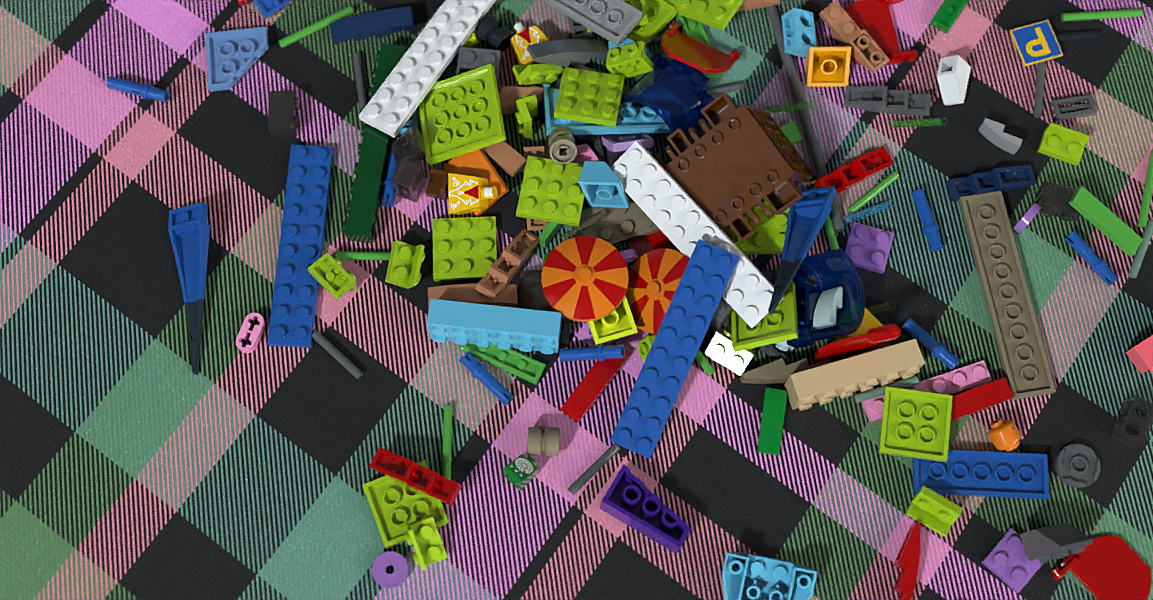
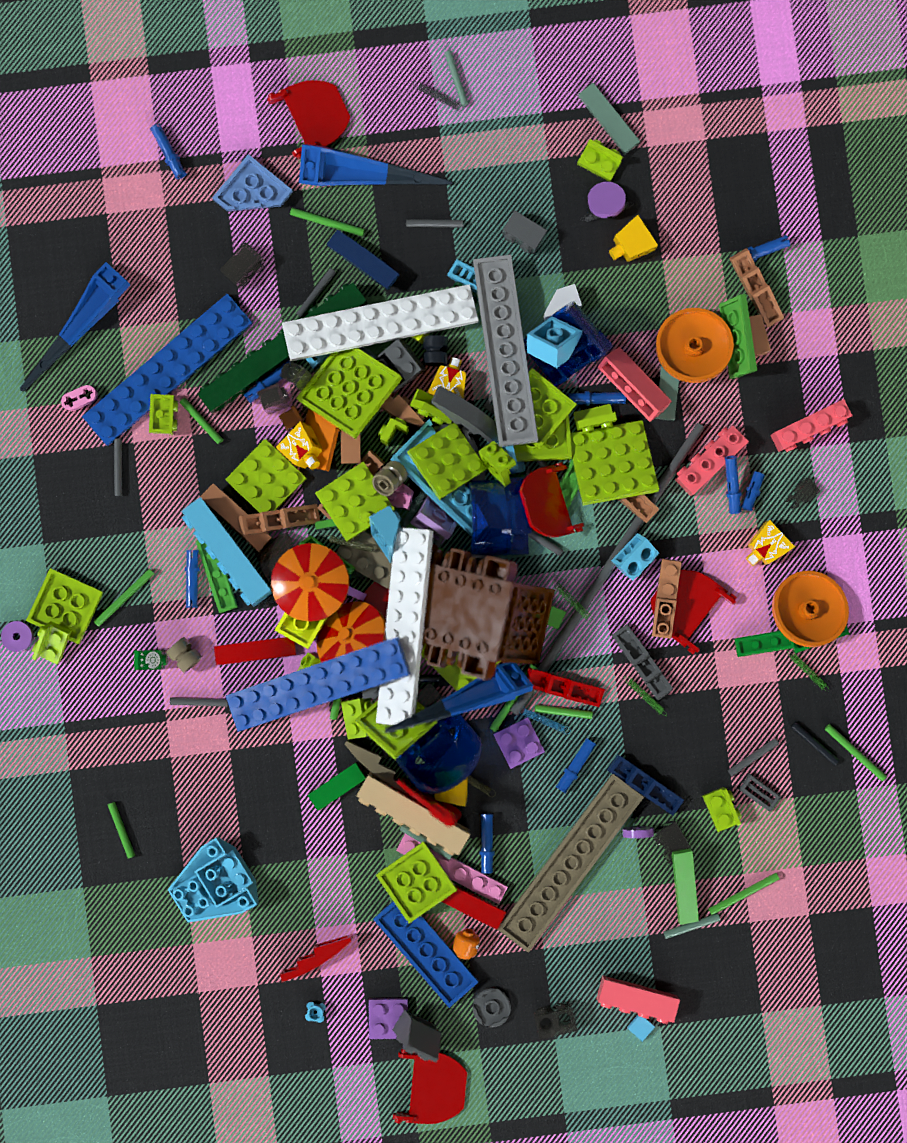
camera: 45 degrees right, 15 degrees up
(405, 264) = (216, 452): lime bracket -> none
(415, 476) = (84, 597): red slope -> none
(599, 352) = (274, 638): blue pin -> none
(643, 511) = (197, 755): dark purple wedge -> none
(826, 308) = (434, 759): light aqua slope -> none
(827, 66) = (627, 600): light orange slope -> none
(933, 510) = (369, 941): lime bracket -> none
(953, 79) = (699, 694): white slope -> none
(994, 133) = (685, 757): light grey slope -> none
(1036, 43) = (785, 726): blue piece -> none
(1092, 259) = (651, 898): blue pin -> none

